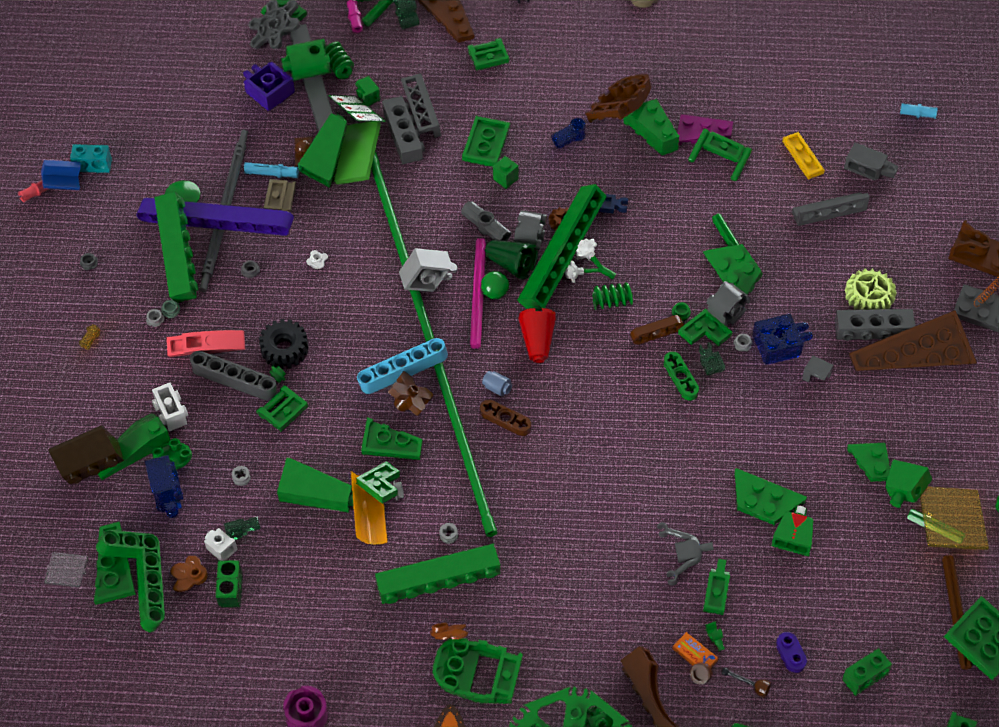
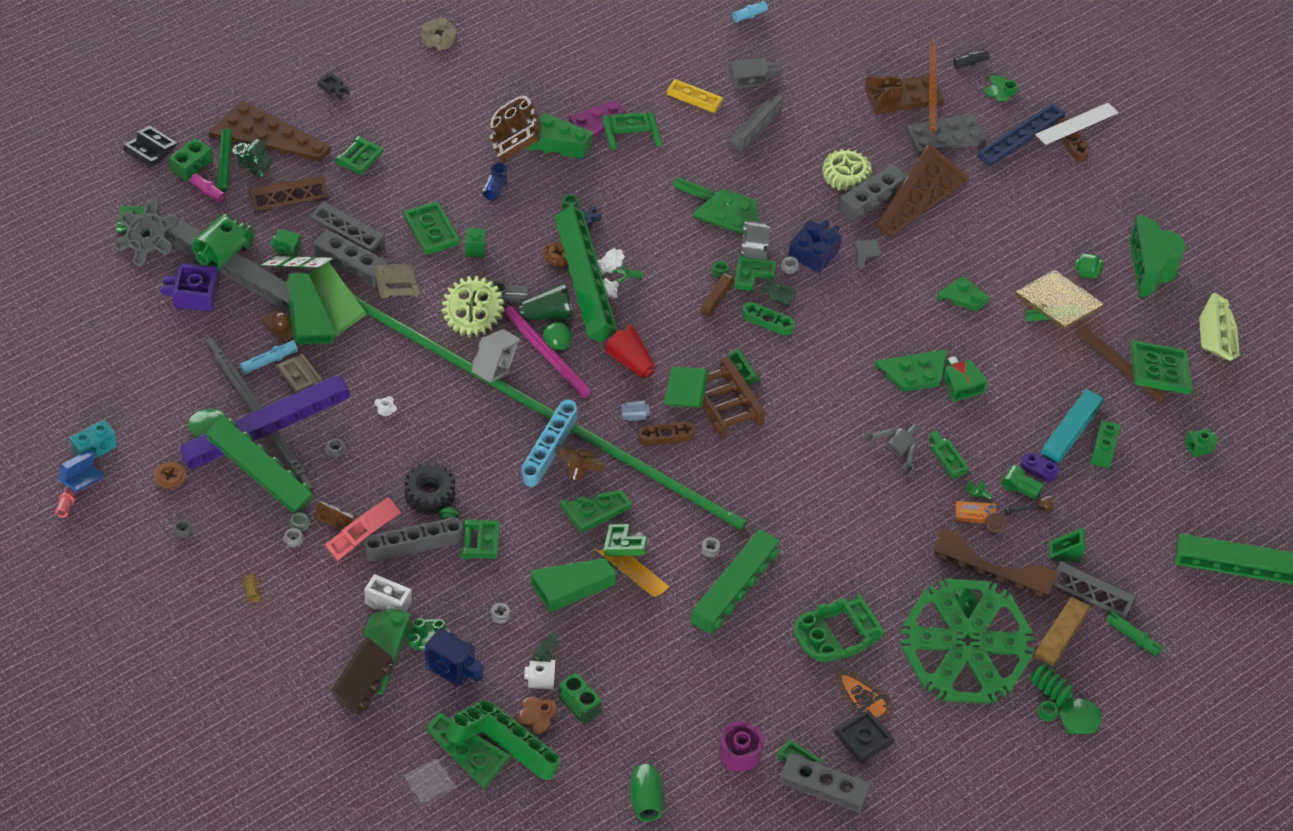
camera: 45 degrees left, 5 degrees down
(124, 211) = (167, 469): none -> dark orange gear
(198, 318) = (333, 516): none -> reddish brown hinge
(199, 694) = (647, 792): none -> green piece
(409, 46) = (286, 186): none -> reddish brown fence
(418, 161) = (396, 275): none -> dark tan plate
(443, 631) = (787, 617): dark orange plate -> none
(452, 221) = (490, 307): none -> yellowish green gear
(530, 228) = (544, 273): dark grey brick -> none
(551, 389) = (686, 387): none -> green tile
(593, 429) = (744, 395): none -> reddish brown fence
(611, 295) = (658, 289): green piece -> none
(613, 184) = (569, 200): none -> green plate
(620, 403) = (744, 366): none -> green slope
(757, 650) = (1017, 480): none -> green piece
(854, 636) = (1072, 426): none -> teal beam
(906, 482) = (1006, 293): green torso -> none

